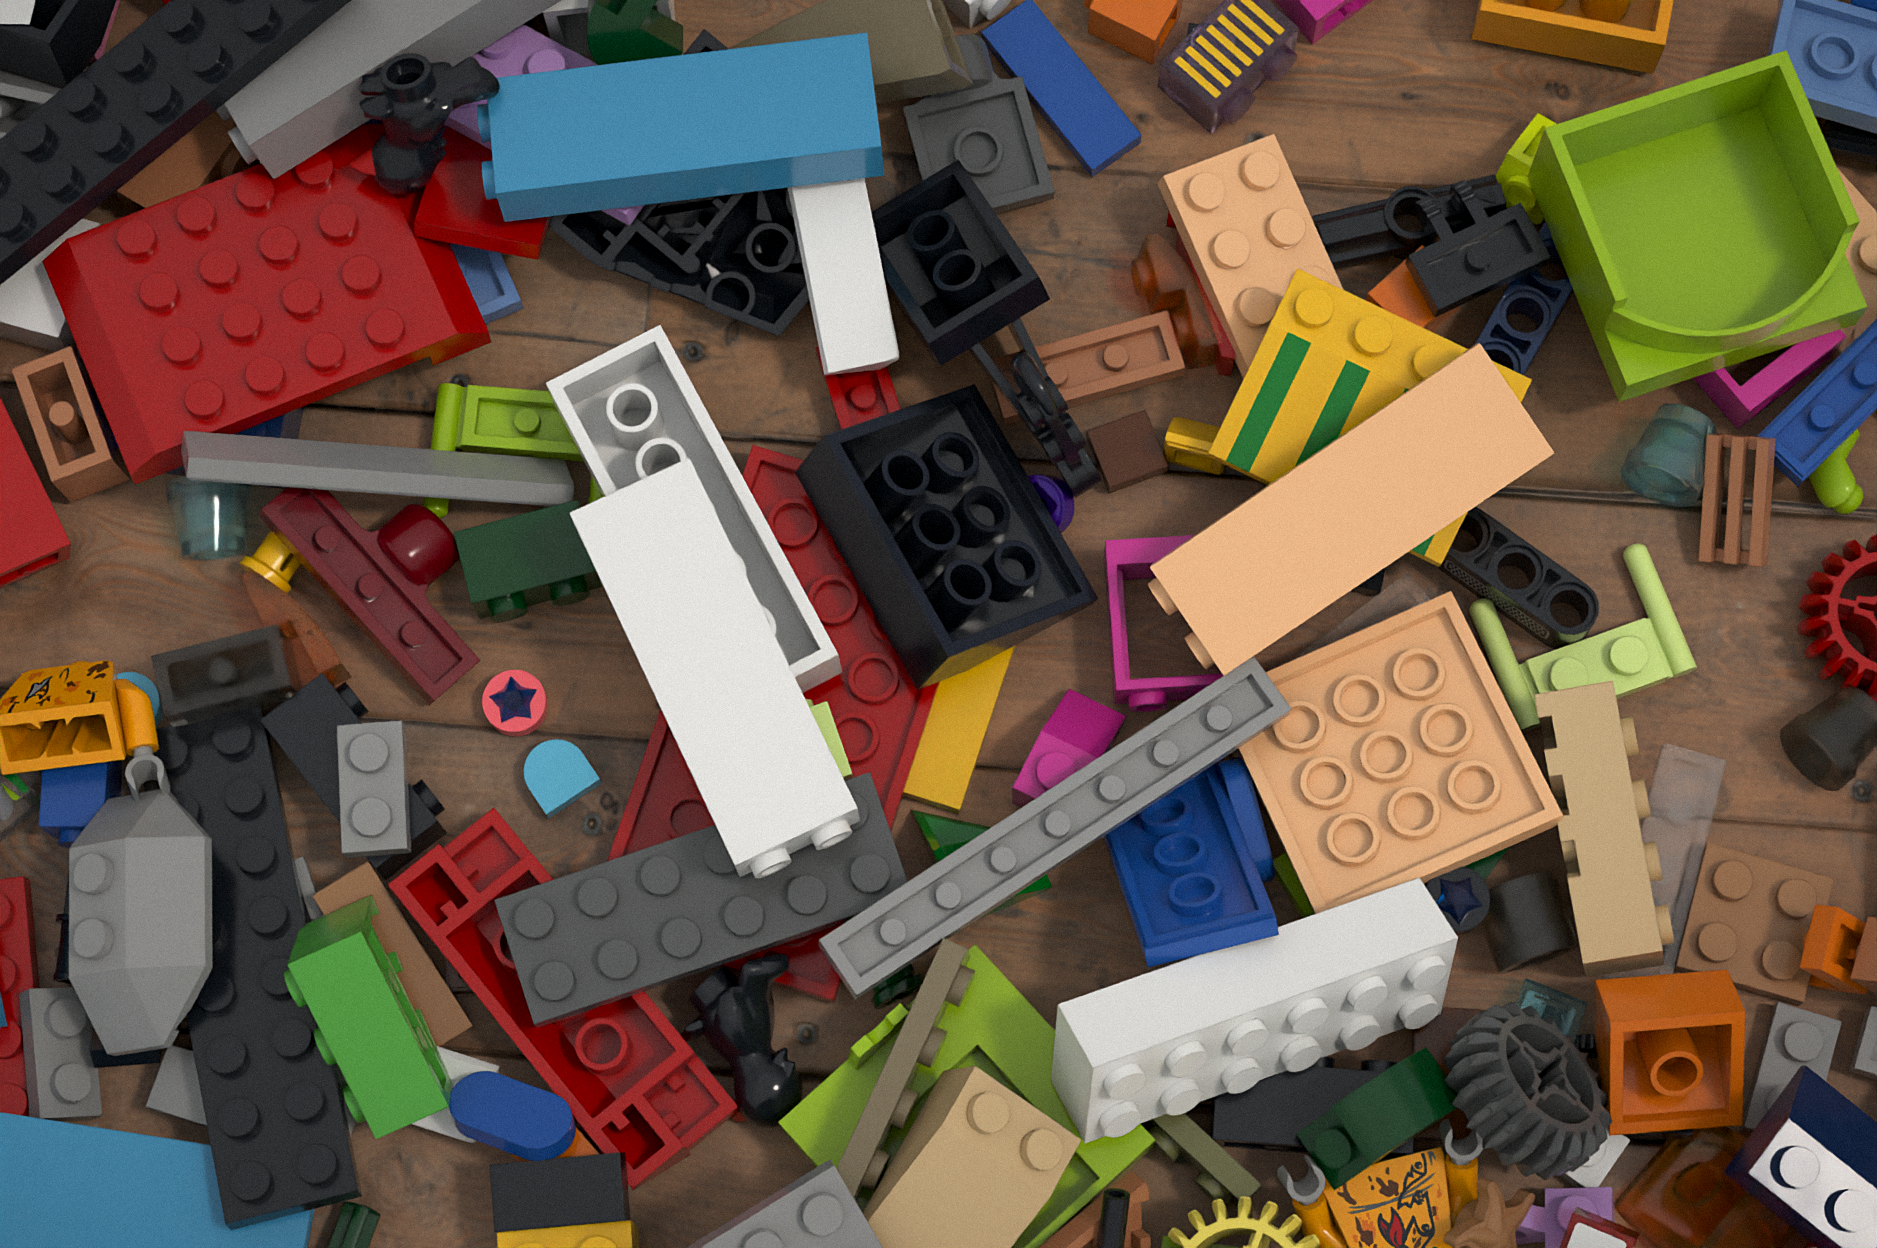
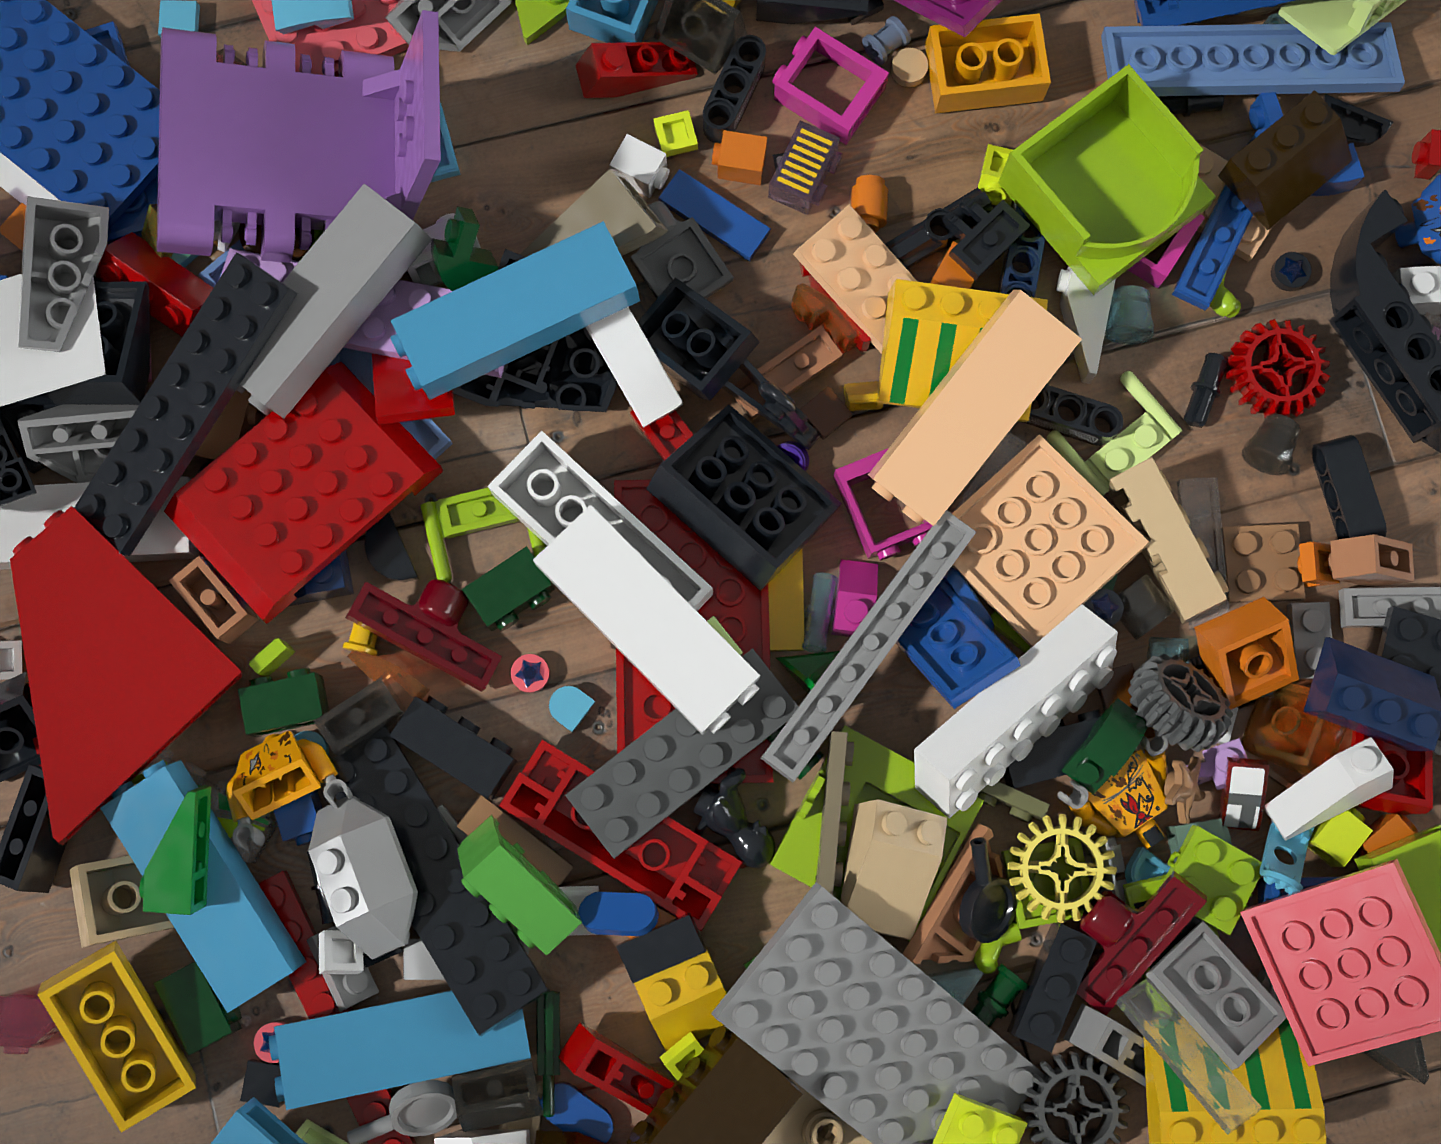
camera: 25 degrees left, 5 degrees up
(59, 1027) = (339, 954): none -> white plate
(116, 617) = (283, 703): none -> dark green brick
(126, 542) = (271, 657): none -> lime tile
(209, 517) = (315, 625): clear light blue piece -> none
(365, 418) = (387, 551): none -> black tile
(373, 789) = (470, 753): light grey plate -> none
(375, 469) = (403, 568): light grey tile -> none
(413, 105) = (354, 351): black animal -> none
(1002, 759) = (819, 612): none -> clear light blue pin
(1315, 143) = (870, 200): none -> orange brick
(1596, 438) = (1087, 318): none -> white slope
(1712, 499) = (1181, 359): nougat tile -> none
(1757, 614) = (1205, 389): none -> black axle

